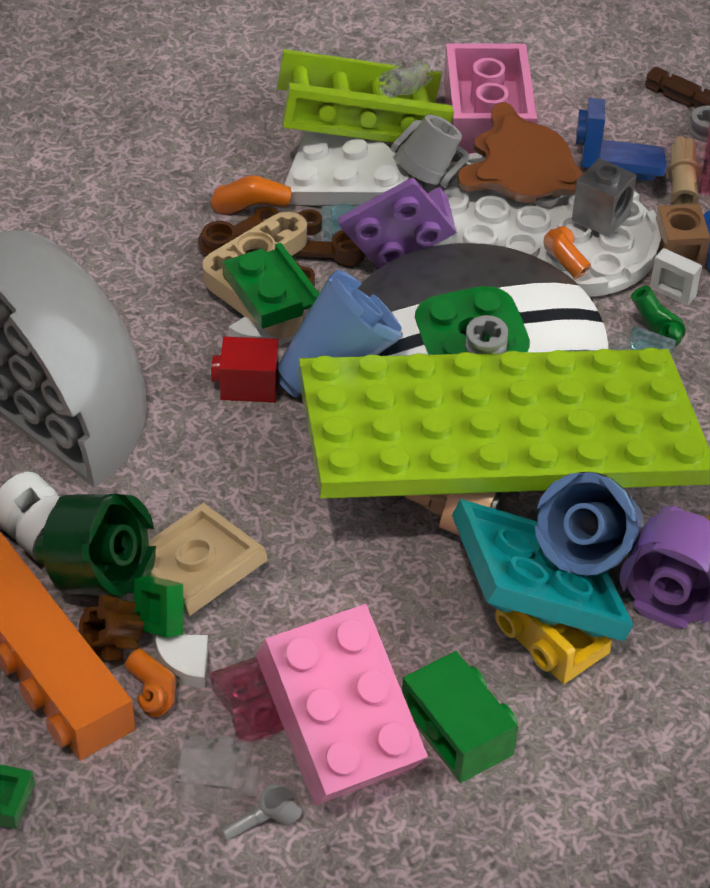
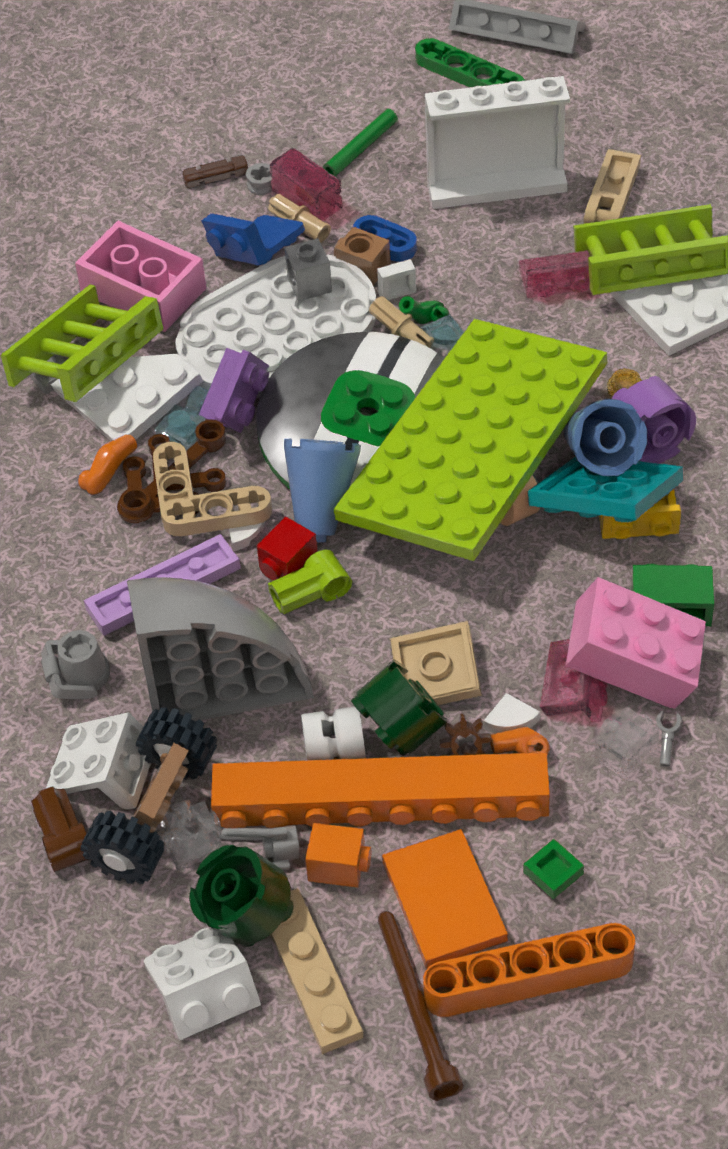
camera: 50 degrees left, 5 degrees up
(159, 605) = (470, 700): green plate -> none
(161, 310) = (202, 563): none -> lavender plate
(235, 413) = (319, 578): none -> lime piece
(270, 285) = (231, 493): green plate -> none
(405, 78) = (100, 302): clear pin -> none
(428, 149) = (180, 333): light grey piece -> none
(486, 326) = (394, 391): light grey bush -> none
(520, 160) = (229, 288): dark orange tile -> none
(560, 245) = (324, 319): orange arm -> none
(618, 306) = (397, 322): none -> tan axle

